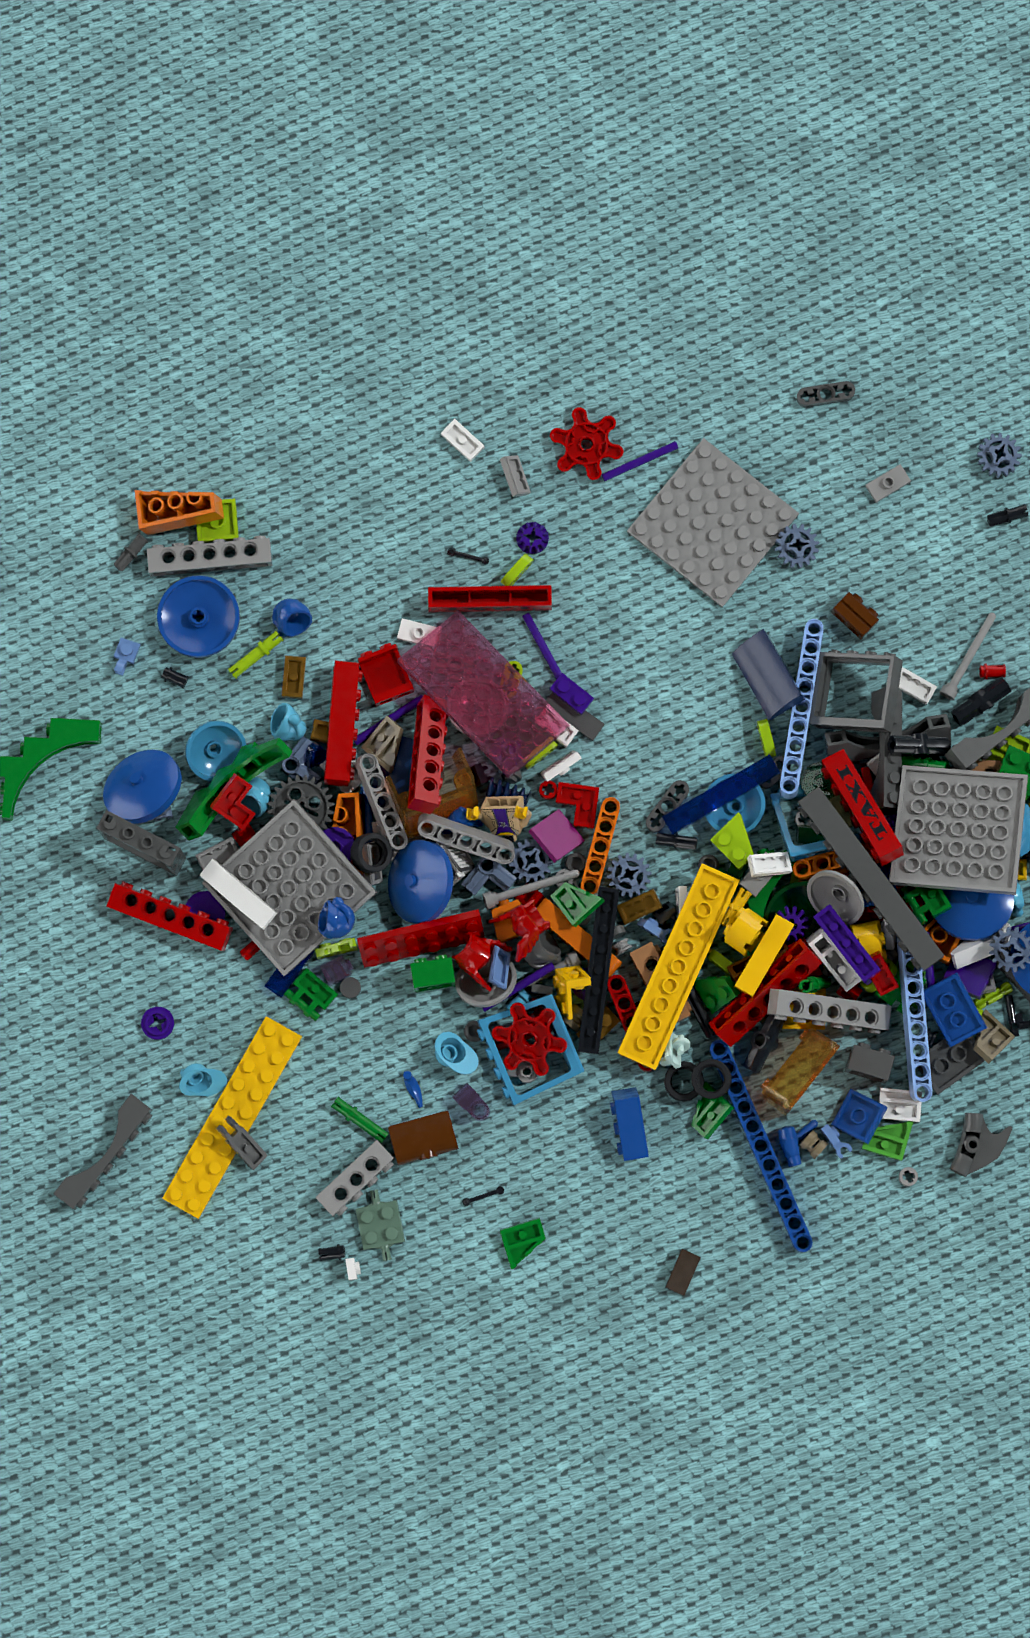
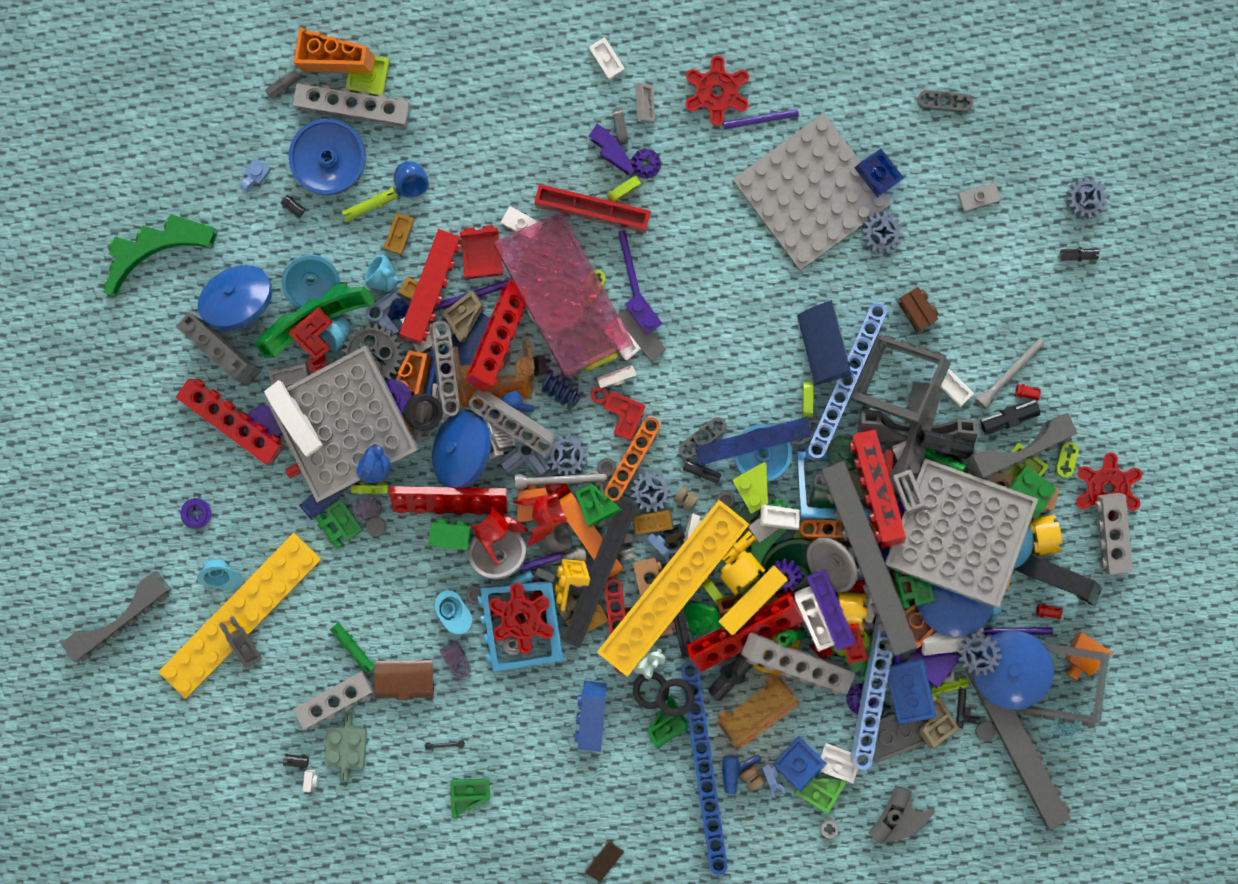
camera: 15 degrees right, 5 degrees up
(413, 1088) = (408, 631): blue bar -> none
(452, 551) = (570, 157): black hinge -> none
(493, 533) = (611, 149): none -> dark purple slope
(495, 506) = (620, 126): none -> dark grey beam
(499, 967) = (511, 546): medium blue tile -> none
(502, 815) = (550, 408): torso -> none
(556, 836) = (595, 439): magenta tile -> none
(671, 873) = (690, 499): none -> dark tan wheel
(777, 485) = (879, 173): none -> clear blue plate
(870, 1063) = (821, 720): dark grey brick -> none
(896, 1034) = (852, 699): none -> dark purple gear
(903, 816) = (902, 475): none -> light grey tile

